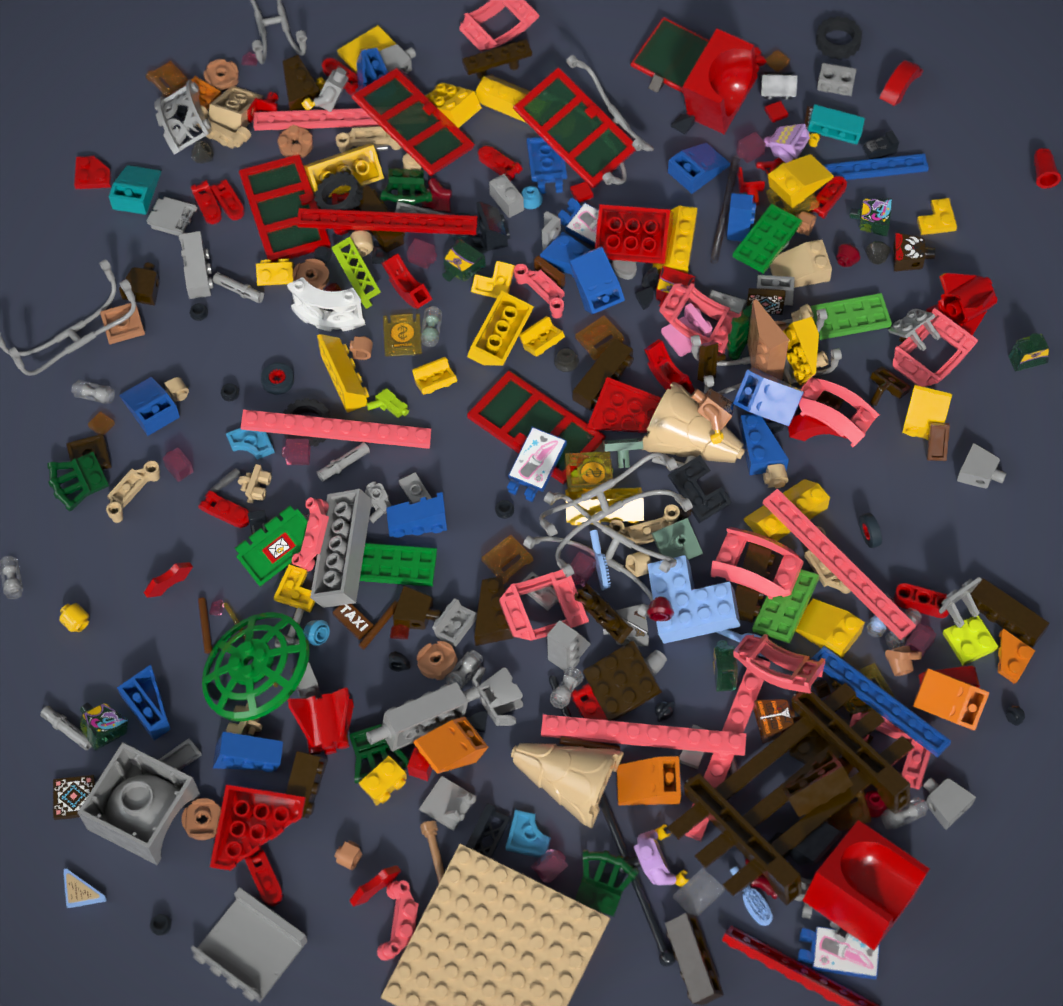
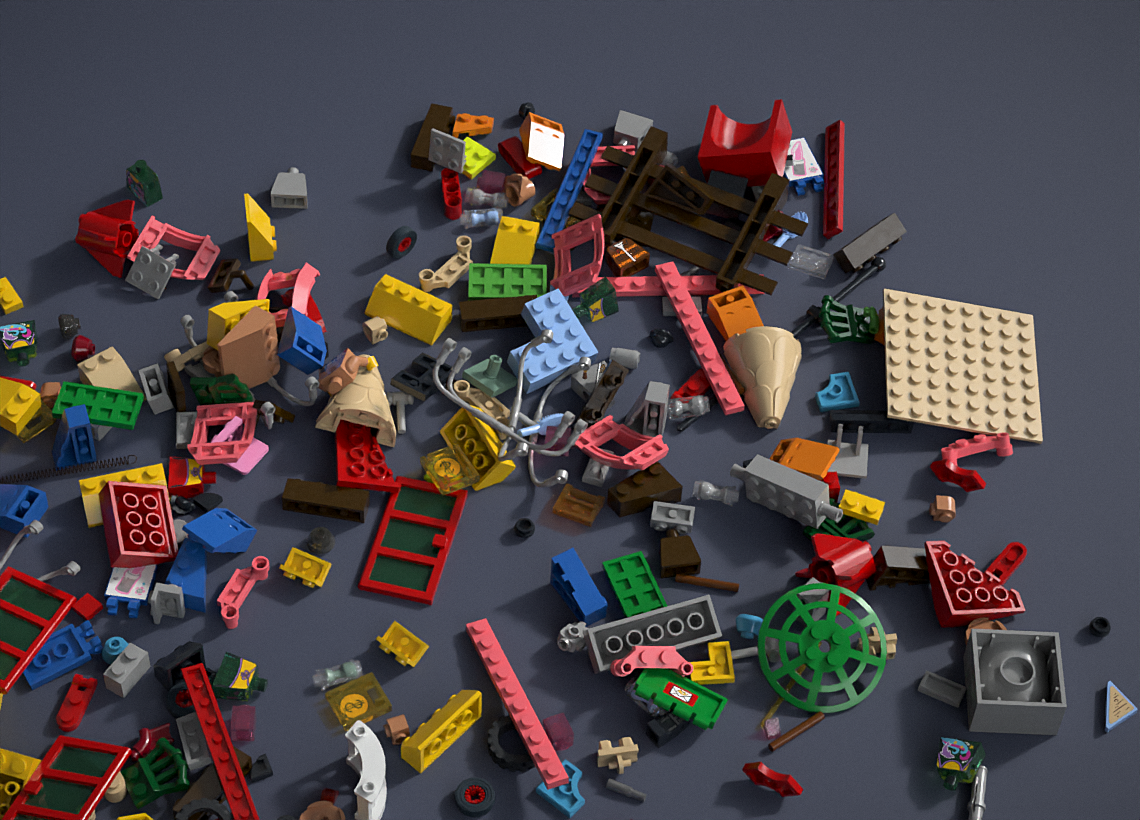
camera: 120 degrees left, 10 degrees down
(70, 795) = (1037, 758): dark brown tile -> none
(145, 701) = (910, 733): blue wedge -> none
(225, 510) = (660, 772): red plate -> none
(247, 753) = (909, 625): blue wedge -> none
(250, 946) = (1070, 552): light grey panel -> none
(337, 465) = (555, 691): light grey pin -> none
(352, 275) = (311, 772): lime fence -> none
(353, 620) = (720, 599): reddish brown tile -> none
(363, 241) = (259, 786): tan head -> none
(388, 401) = (450, 678): lime piece -> none
(398, 662) = (736, 550): black piece -> none
(399, 632) = (706, 566): clear red piece -> none
(407, 287) = (297, 714): red arch -> none
(414, 488) = (545, 611): light grey plate -> none
(430, 830) = (881, 460): medium nougat piece -> none
(438, 669) = (727, 508): nougat plate -> none
(492, 286) = (257, 631): yellow plate -> none
(500, 330) = (317, 604): yellow slope -> none
(500, 696) = (721, 456): light grey piece -> none
(535, 462) = (463, 516): tile -> none
(550, 865) = (856, 361): clear pink brick -> none
(554, 274) = (215, 591): reddish brown tile -> none
(597, 332) = (277, 526): clear orange plate -> none
(598, 905) = (874, 319): none -> bright green arm
(622, 681) = (656, 362): dark brown plate -> none
(623, 446) = (406, 449): sand green tile -> none
(637, 563) = (529, 394): tan plate -> none
(653, 860) = (803, 295): lavender torso -> none
(660, 609) = (580, 346): dark red cone -> none
(664, 368) = (301, 443): red arch -> none
(731, 551) = (483, 327): coral wedge -> none
(751, 188) = (22, 454): red bracket -> none
(760, 445) = (357, 338): blue wedge -> none
(839, 564) = (455, 245): coral plate -> none
(853, 316) = (155, 326): bright green plate -> none
(910, 252) = (56, 300): dark brown torso -> none
(938, 441) = (280, 219): reddish brown tile -> none

